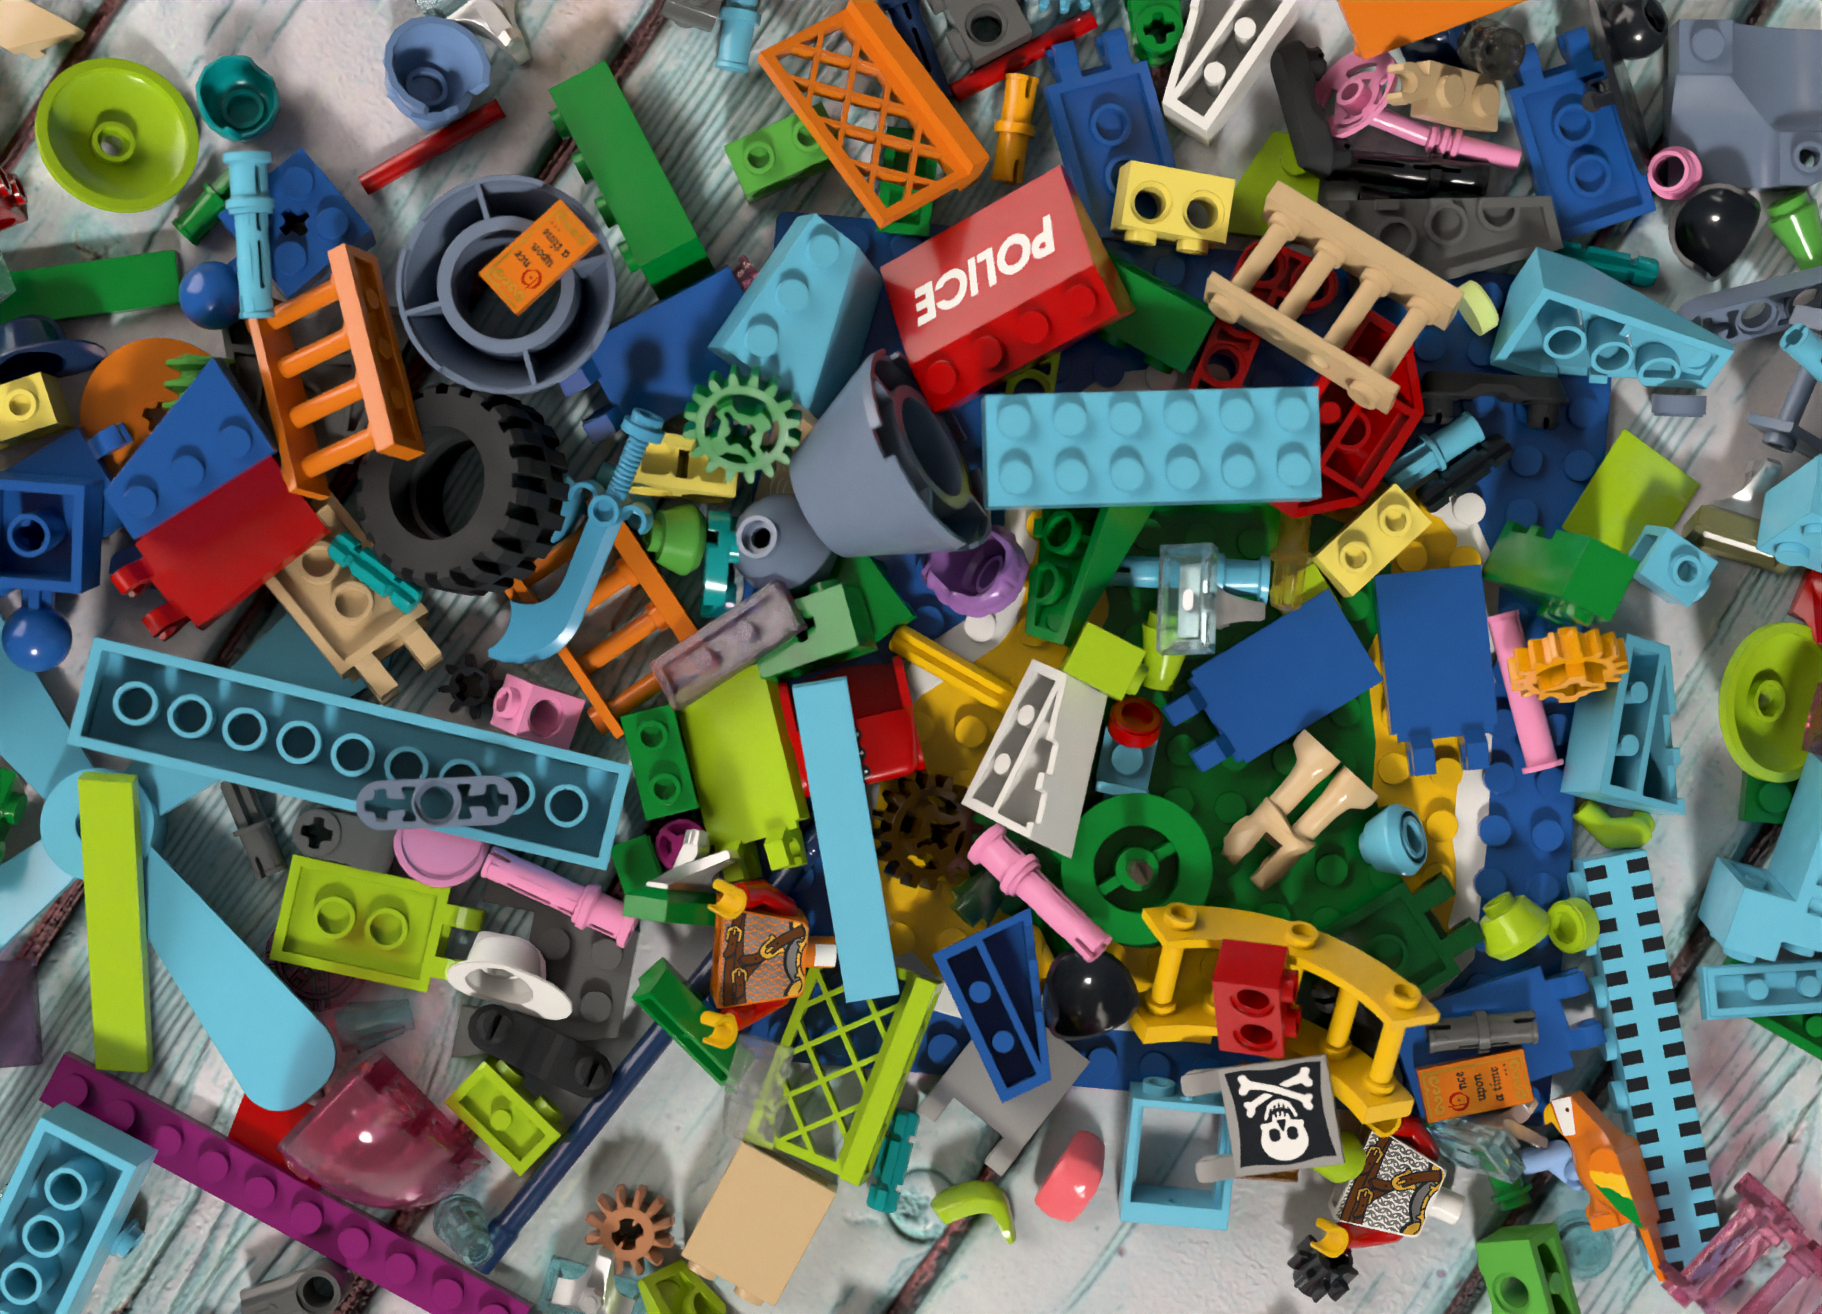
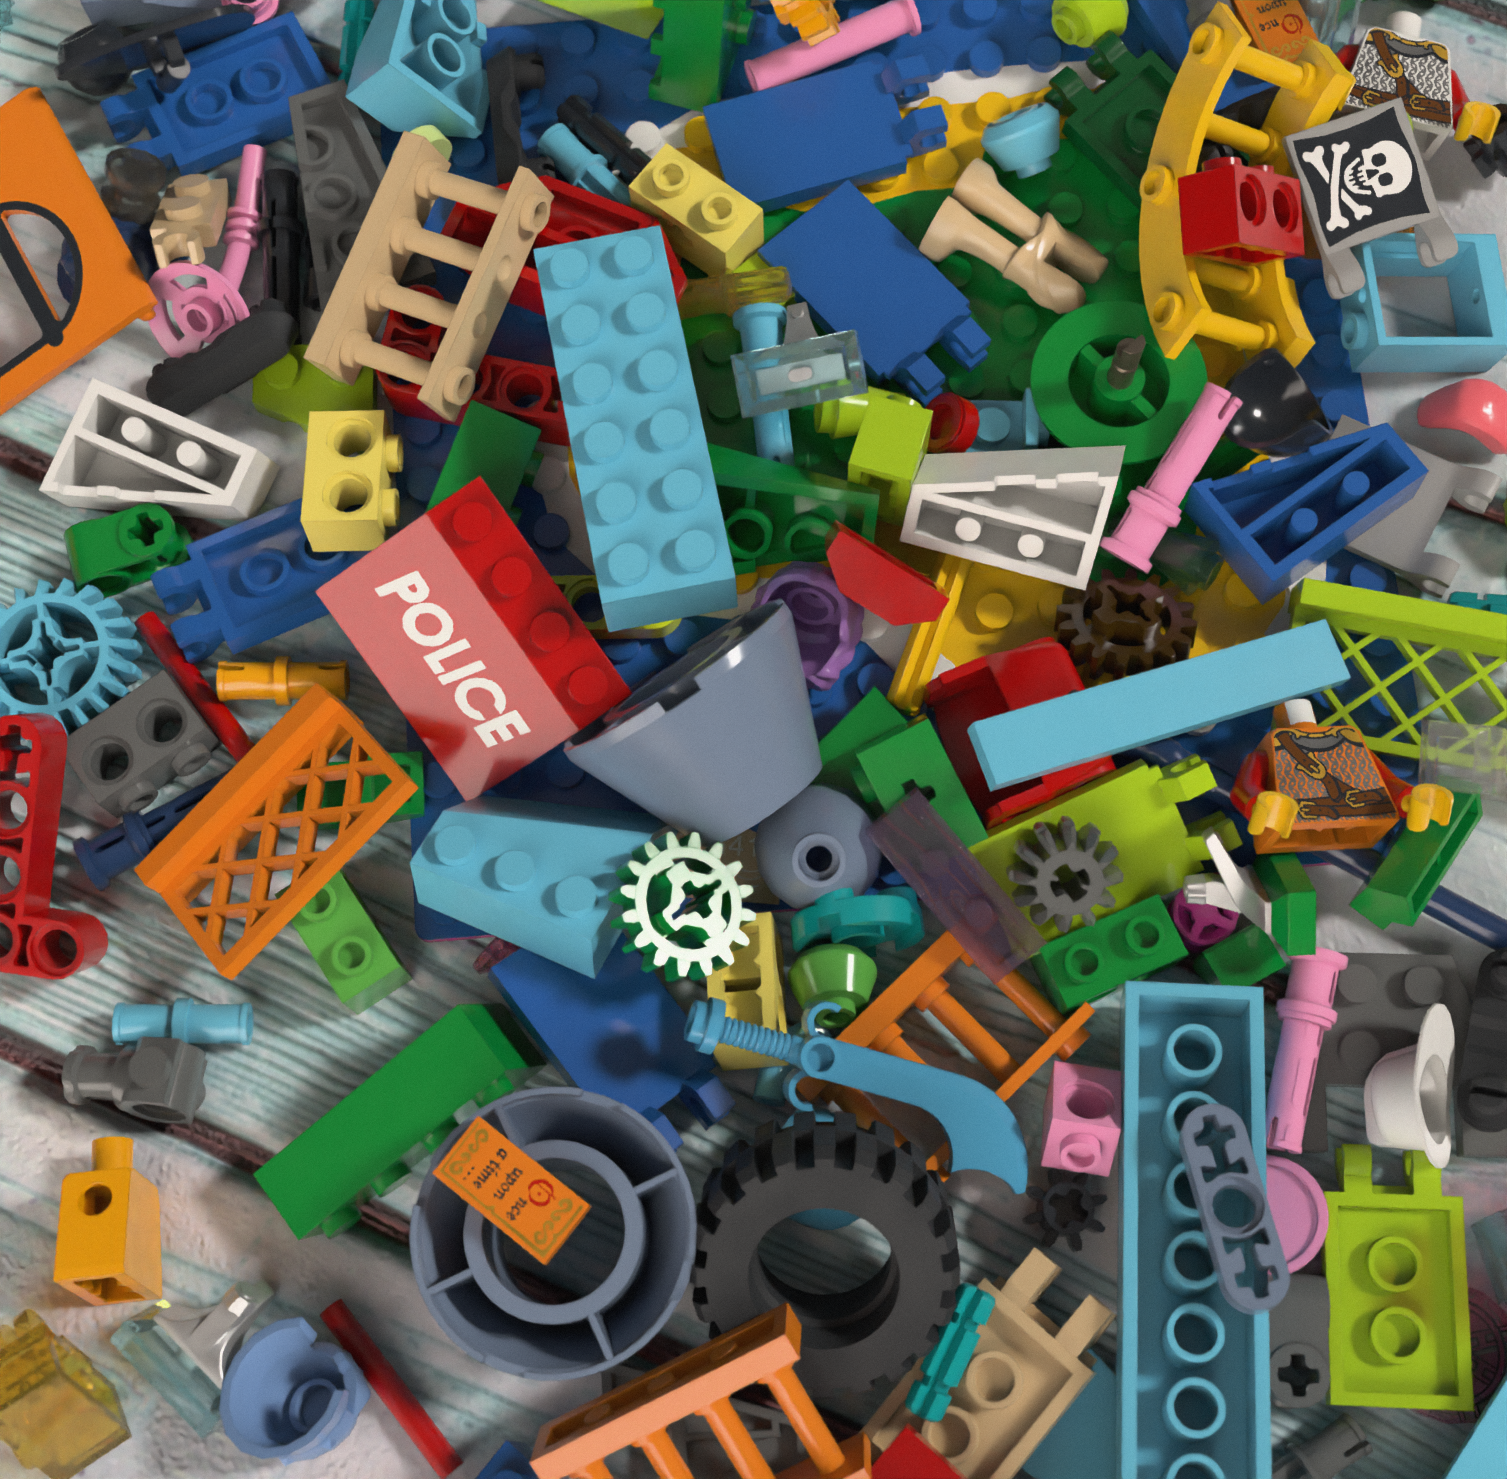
camera: 90 degrees left, 15 degrees down
(723, 734) = (1086, 859): none -> dark grey gear
(993, 635) = (881, 580): none -> red slope

